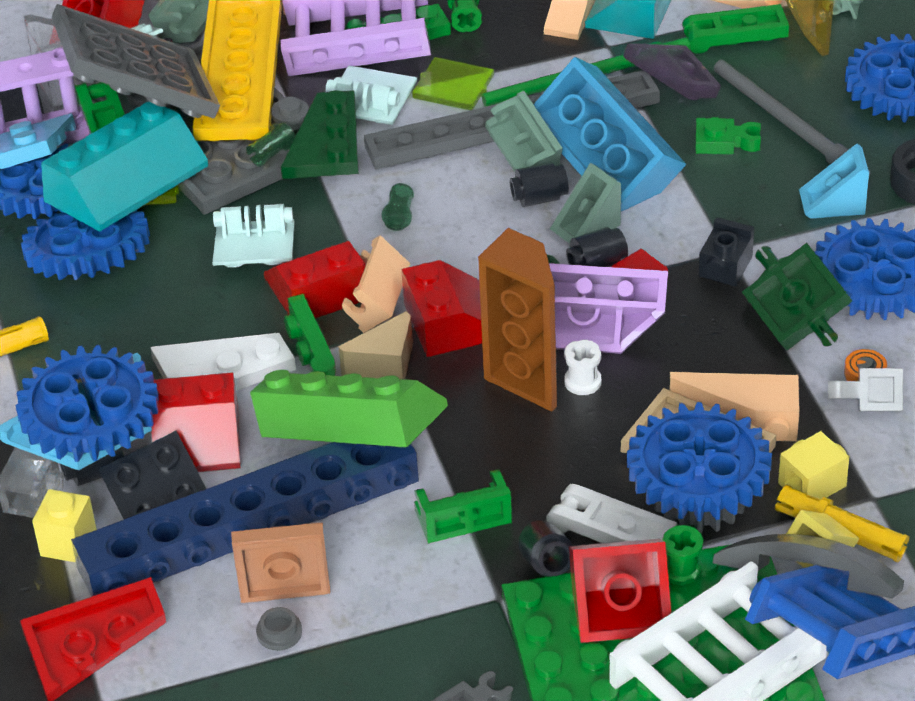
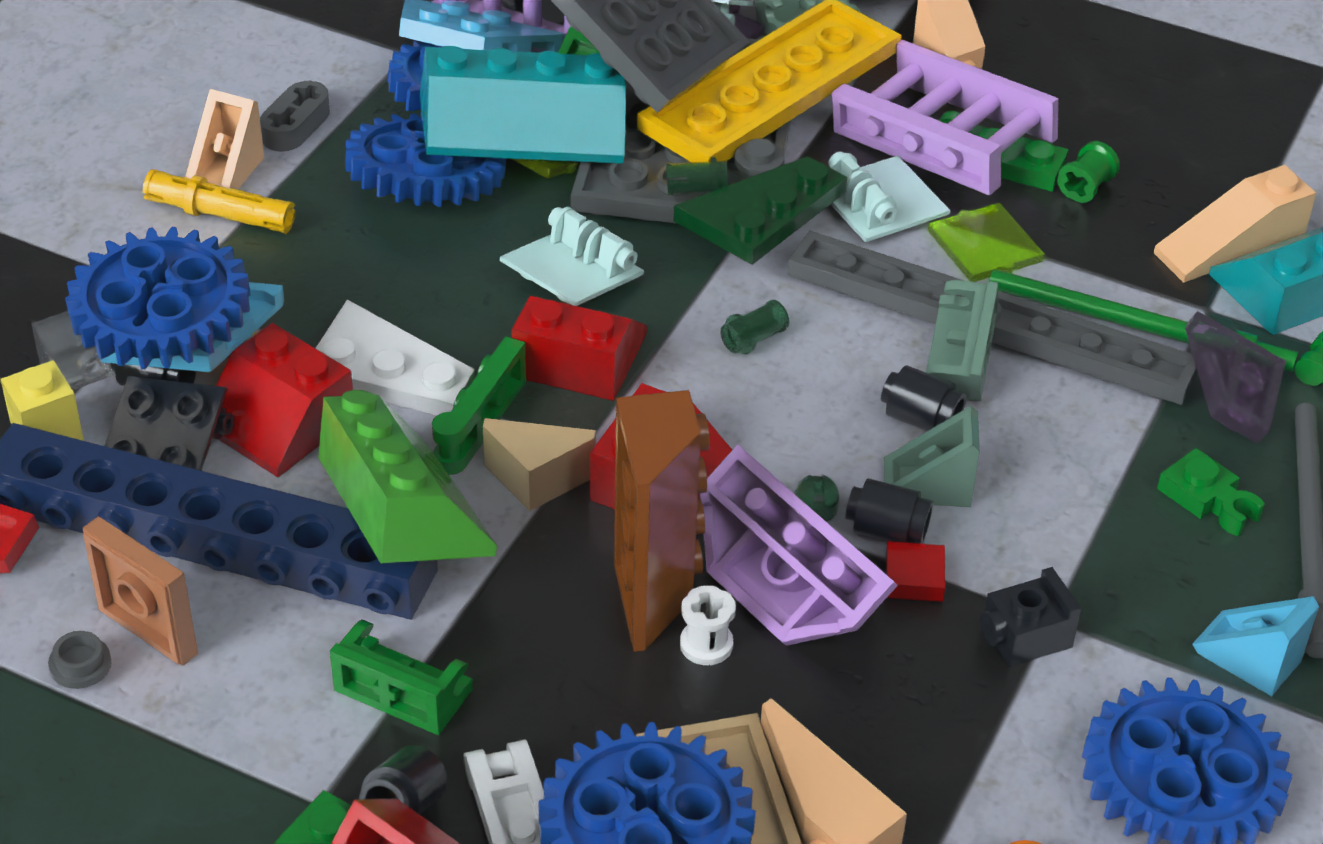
camera: 40 degrees right, 0 degrees up
(378, 285) = (590, 390): light nougat hinge -> none
(604, 128) = (1051, 397): dark azure slope -> none
(796, 296) = (1036, 725): dark green plate -> none

